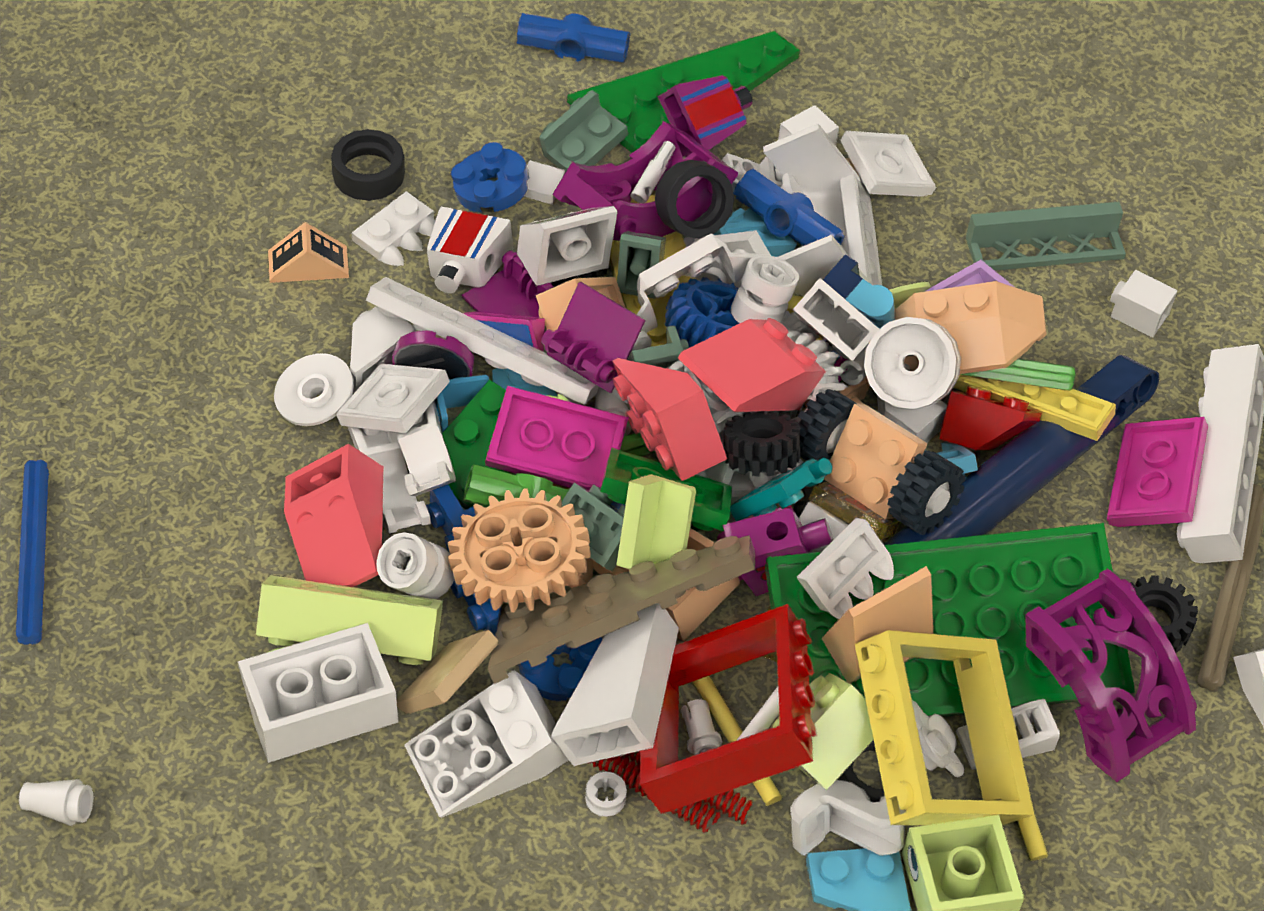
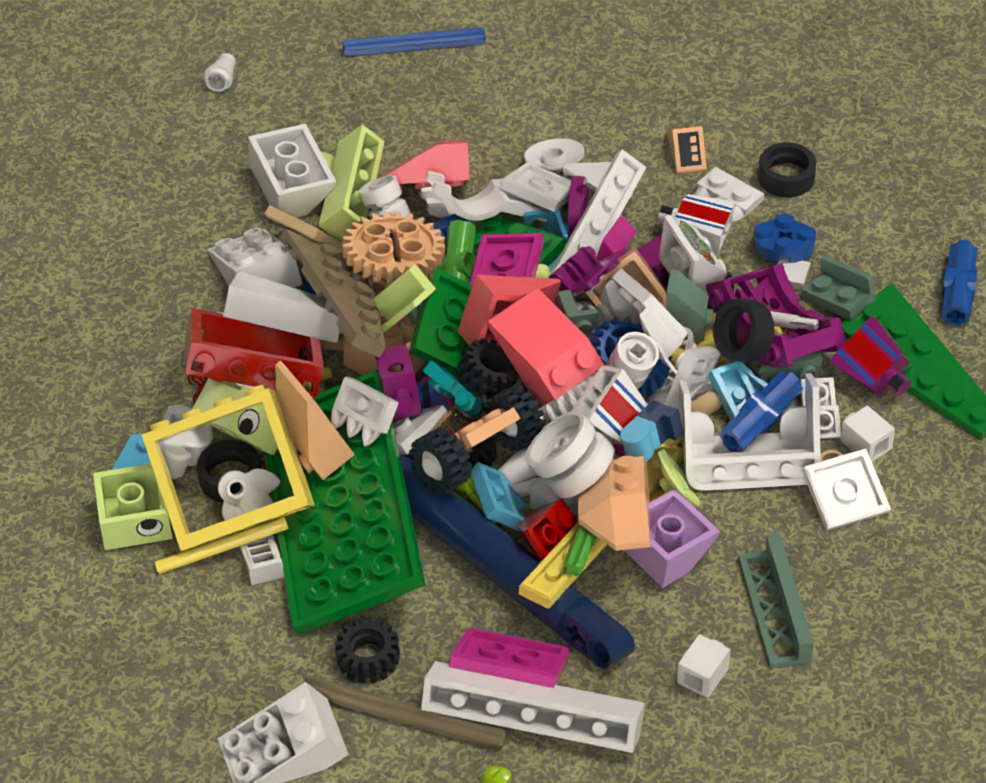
camera: 95 degrees right, 5 degrees down
(1161, 679) = (320, 595): magenta fence -> none

